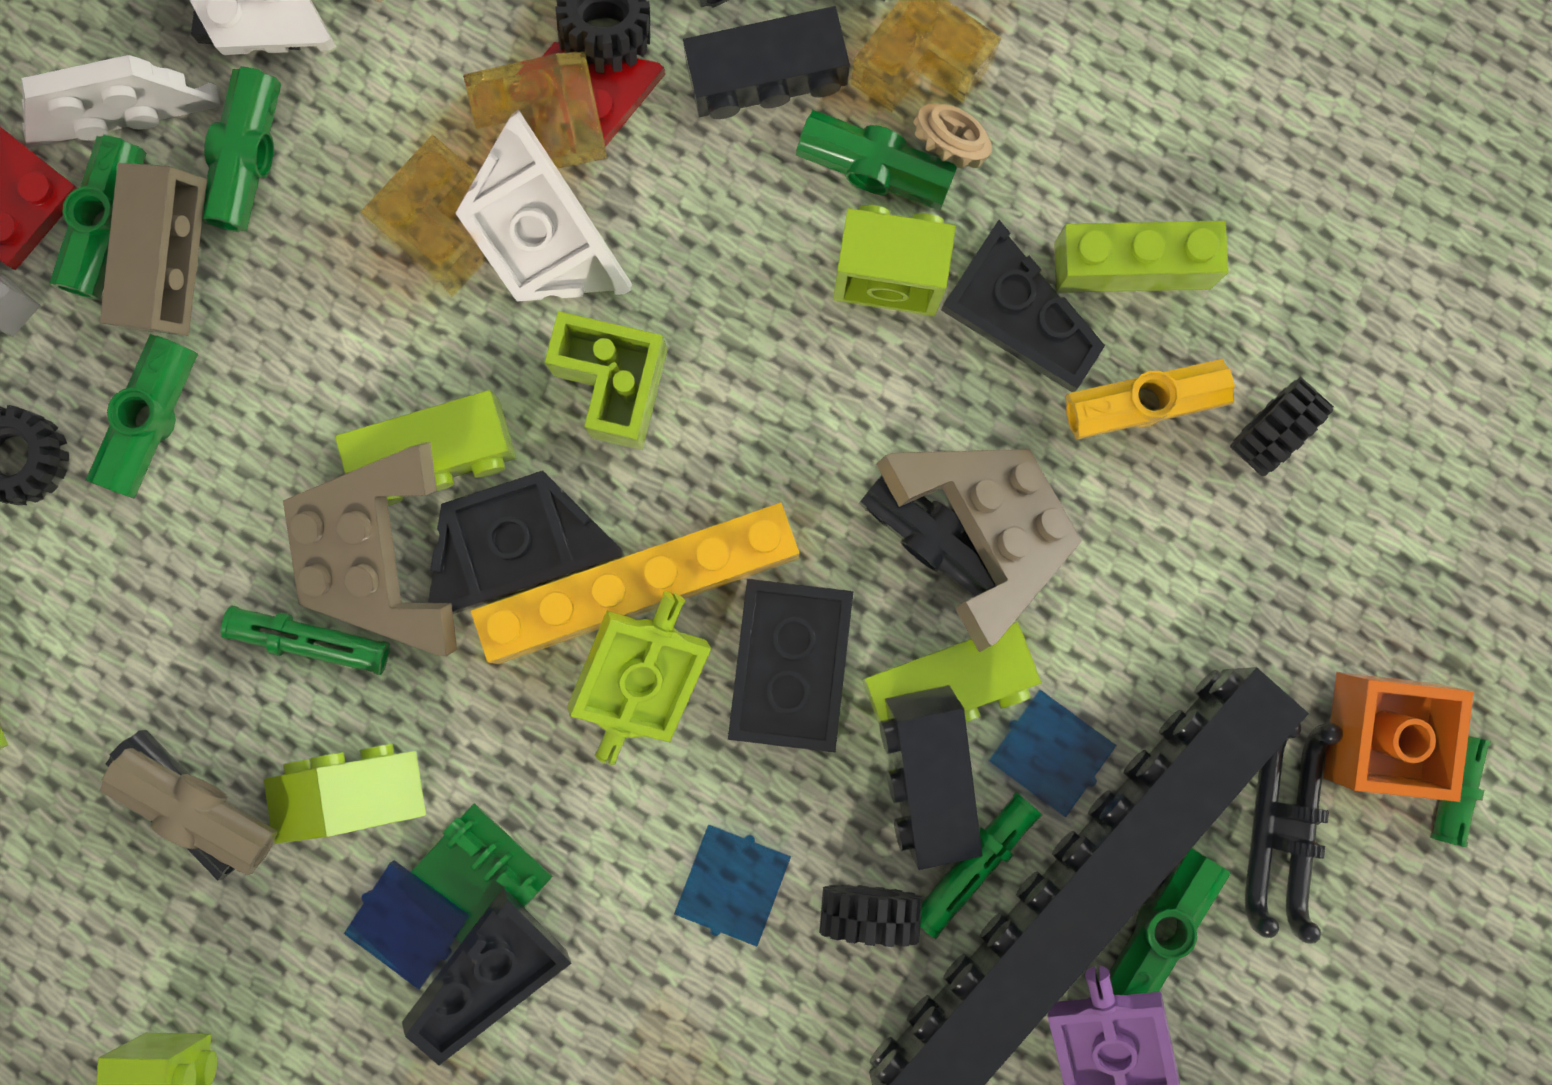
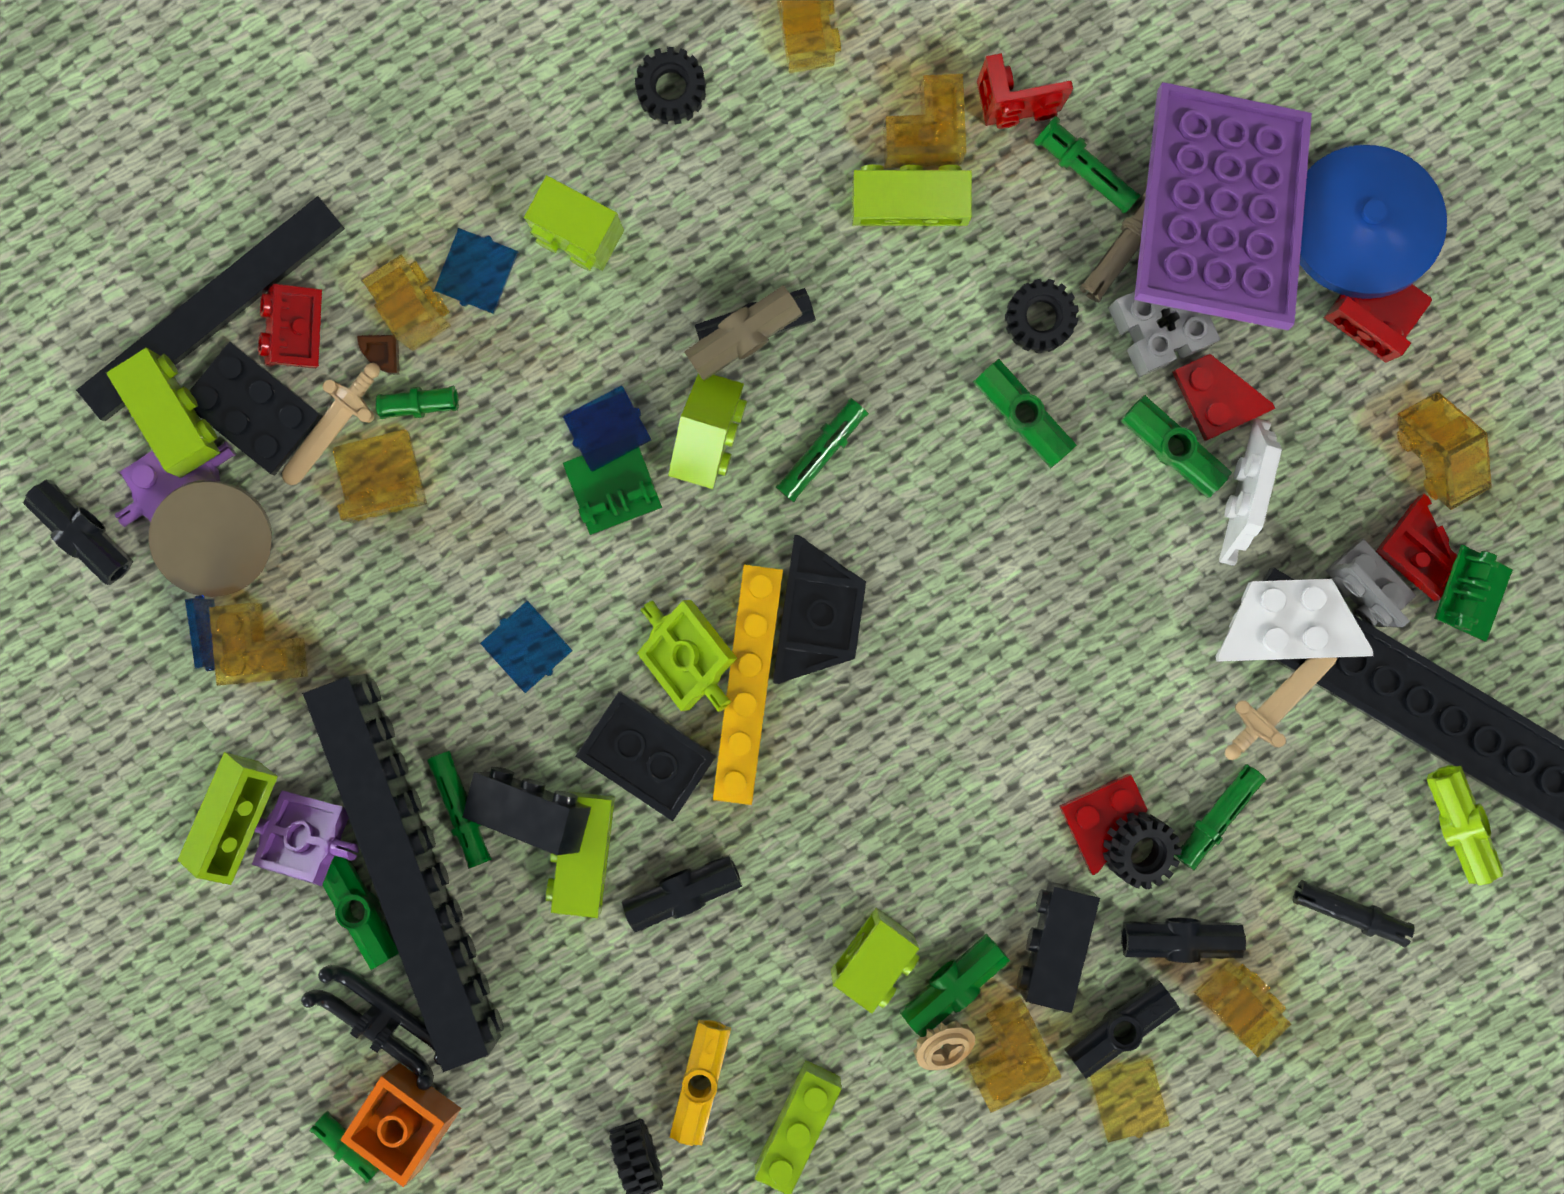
camera: 115 degrees right, 5 degrees up
(153, 249) = (1131, 474): dark tan brick -> none
(239, 149) = (1177, 561): green piece -> none
(348, 556) = (862, 506): dark tan wing -> none
(419, 211) = (1070, 659): clear yellow brick -> none
(463, 436) = (907, 589): lime brick -> none
(484, 979) = (546, 464): black wing -> none
(534, 224) = (1021, 735): white wing -> none
(553, 99) = (1099, 788): clear yellow brick -> none
(620, 365) = (899, 745): lime brick -> none
(870, 915) = (461, 727): black tyre -> none
(1007, 516) = (668, 947): dark tan wing -> none
(1021, 312) = (802, 1028): black wing -> none
(1052, 753) = (504, 895): piece -> none

